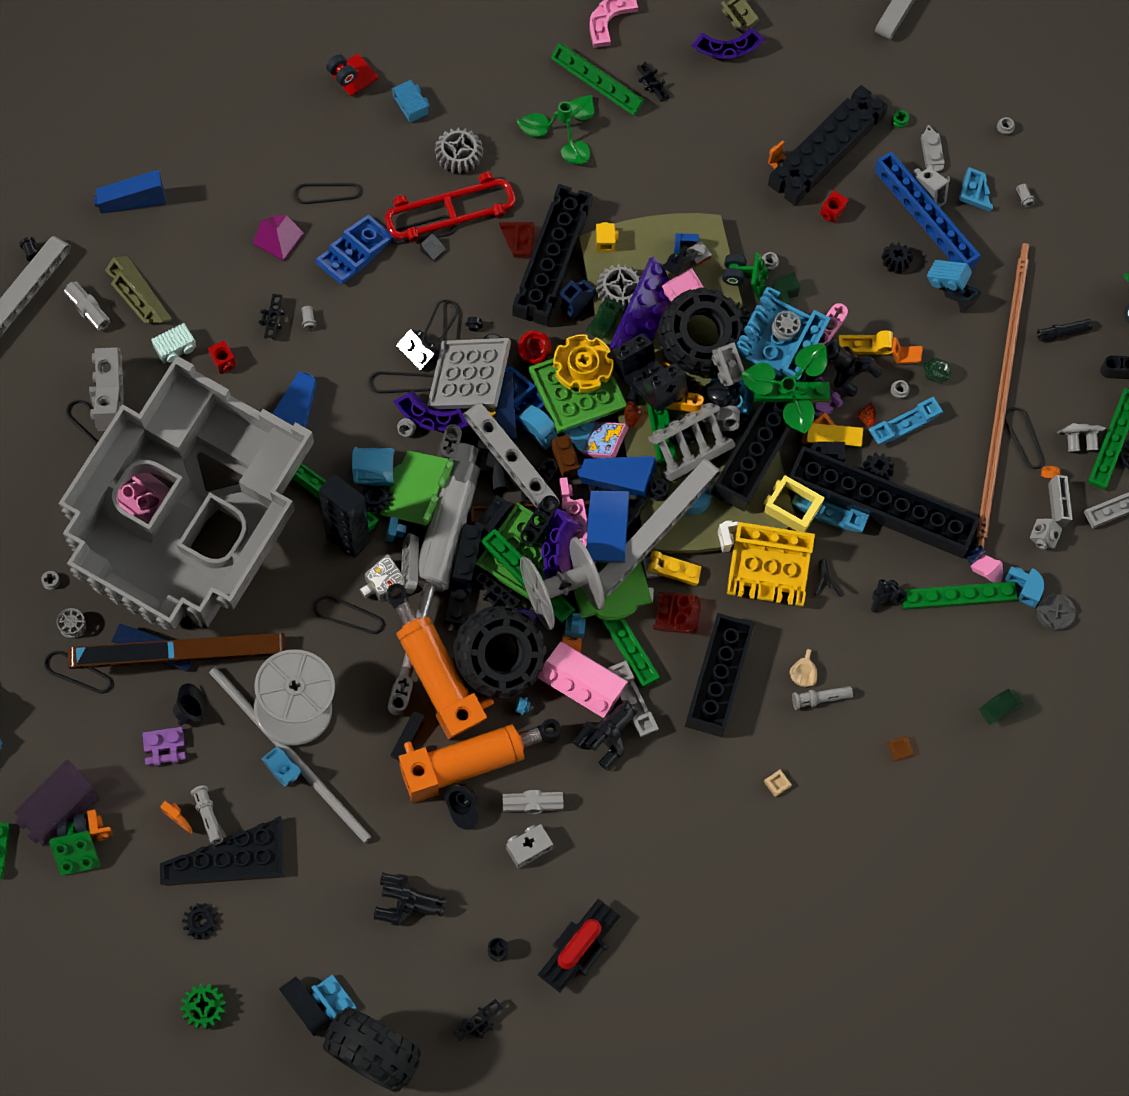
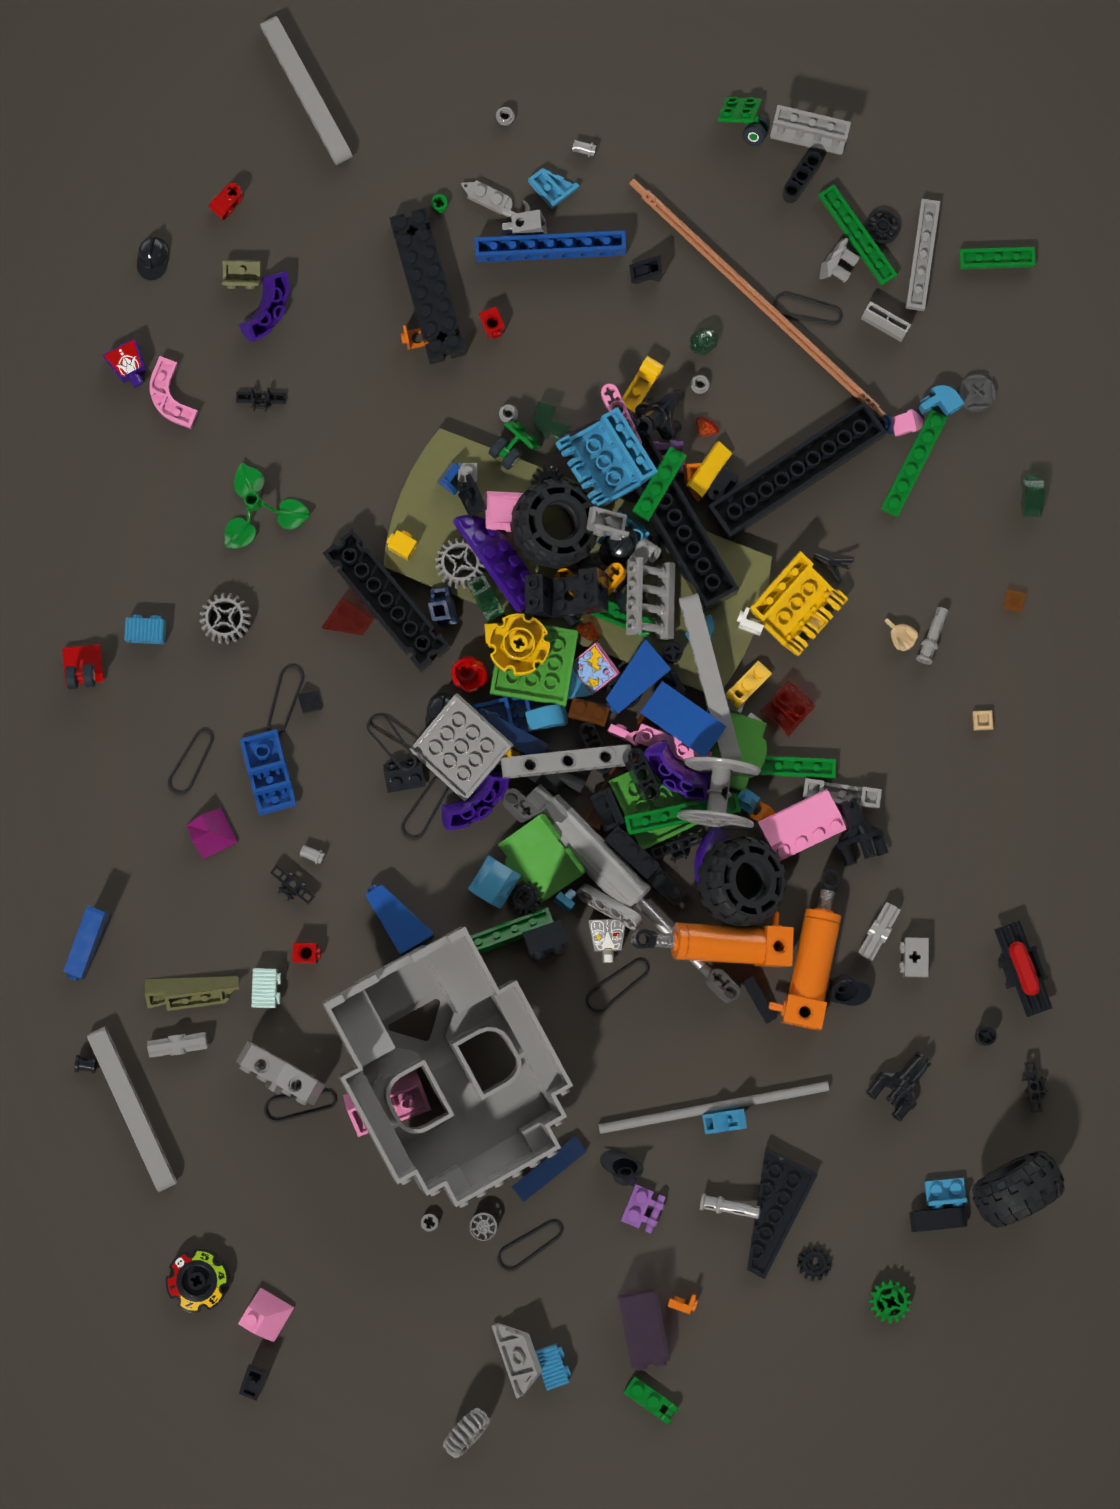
camera: 55 degrees left, 15 degrees up
(74, 846) = (695, 1335): green plate -> none
(173, 812) = (708, 1233): orange plate -> none
(175, 651) = (570, 1152): reddish brown beam -> none
(293, 697) = (682, 1058): light grey piece -> none
(406, 431) = (474, 832): light grey plate -> none
(474, 323) = (409, 711): black plate -> none
(486, 181) = (251, 703): red bar -> none
(522, 706) = (791, 889): dark azure plate -> none
(597, 79) = (228, 447): green plate -> none
(719, 675) = (865, 708): black brick -> none
(761, 379) = (683, 493): green plant -> none
(785, 326) = (599, 449): light grey wheel -> none
(787, 518) = (773, 539): light yellow window -> none
(834, 515) = (776, 520): dark azure slope -> none
(881, 463) = (754, 454): black gear -> none
(887, 591) = (878, 522): black piece -> none
(897, 257) = (570, 306): black gear -> none
(907, 422) = (734, 400): dark azure slope -> none
(908, 354) = (672, 355): orange bracket -> none
(949, 274) = (622, 269): dark azure brick -> none
(1045, 533) = (907, 354): light grey brick -> none
(1050, 471) = (855, 311): orange tile -> none
(1057, 331) = (732, 205): black pin -> none

